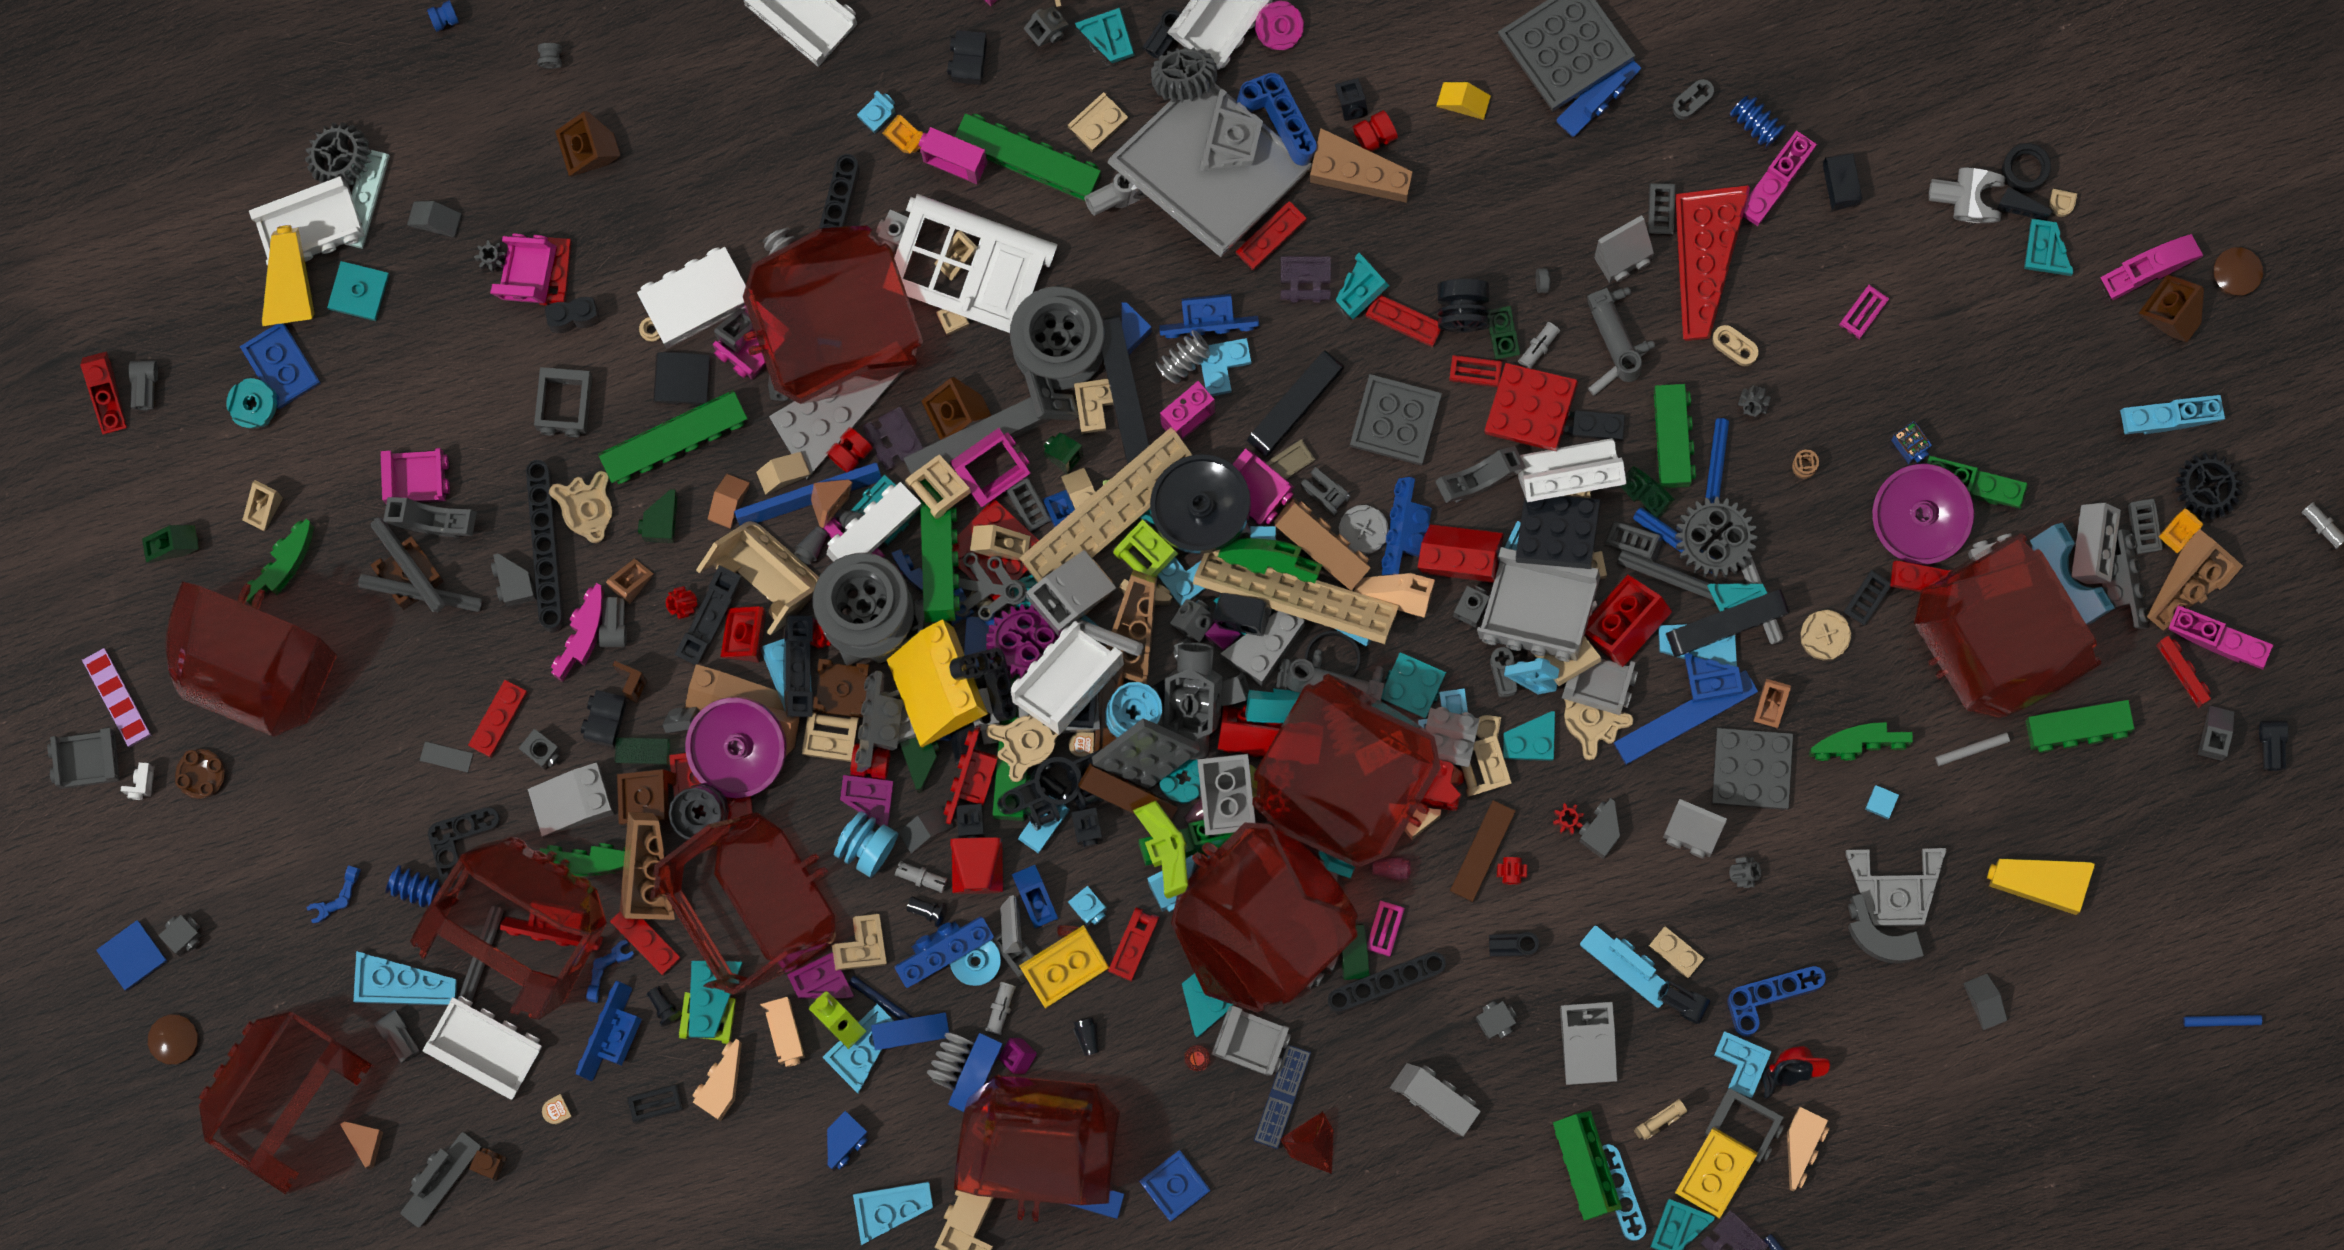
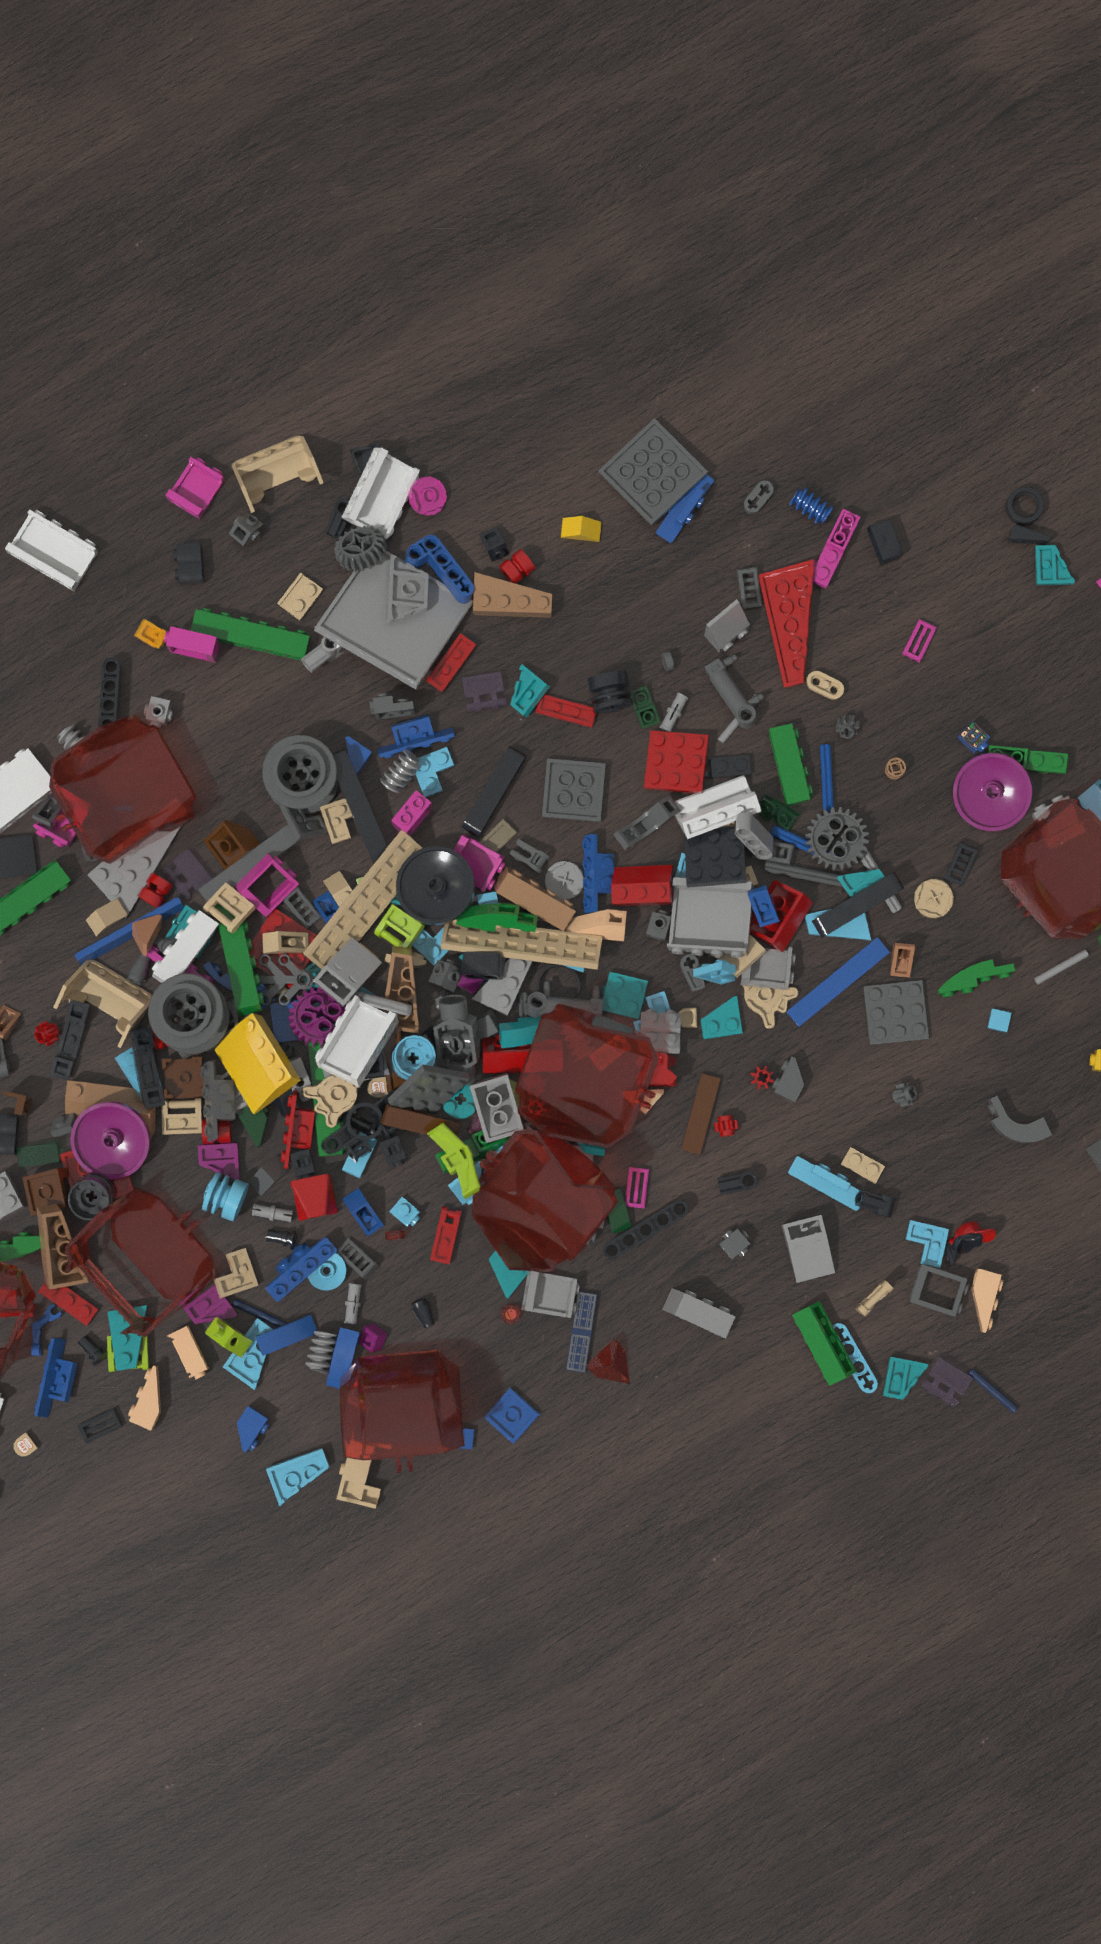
camera: 15 degrees left, 5 degrees up
(660, 519) = (18, 972): dark green slope -> none
(727, 499) = (67, 946): nougat slope -> none
(744, 633) = (99, 1048): red slope -> none
(877, 111) = (127, 619): medium azure bracket -> none
(951, 322) = (216, 772): tan tile -> none
(960, 250) = (210, 722): tan slope -> none
(1000, 272) = (246, 729): white door -> none
(1002, 708) = (310, 1072): black beam -> none
(1011, 926) = (349, 1239): light grey slope -> none
(1063, 452) = (321, 862): dark green slope -> none
(1064, 966) = (395, 1263): yellow tile -> none
(1108, 35) = (296, 526): teal wing -> none
(1178, 276) = (385, 708): none -> dark grey plate
(1392, 868) = (635, 1140): clear pink cone -> none
(1473, 380) = (626, 741): red tile -> none
(1491, 766) = (696, 1048): tan plate -> none
(1607, 602) = (763, 906): none -> blue slope
(1612, 513) = (754, 835): none -> light grey beam
(1694, 829) = (860, 1069): light grey slope -> none
(1711, 679) = (853, 949): blue wing -> none
(1716, 1172) = (923, 1330): yellow tile -> none
(1777, 994) = (945, 1183): blue beam -> none
(1897, 899) = (1022, 1093): light grey wing -> none
(1914, 576) = (994, 841): red plate -> none
(1966, 194) = (982, 535): light grey connector -> none
(2062, 202) = (1056, 528): tan tile -> none

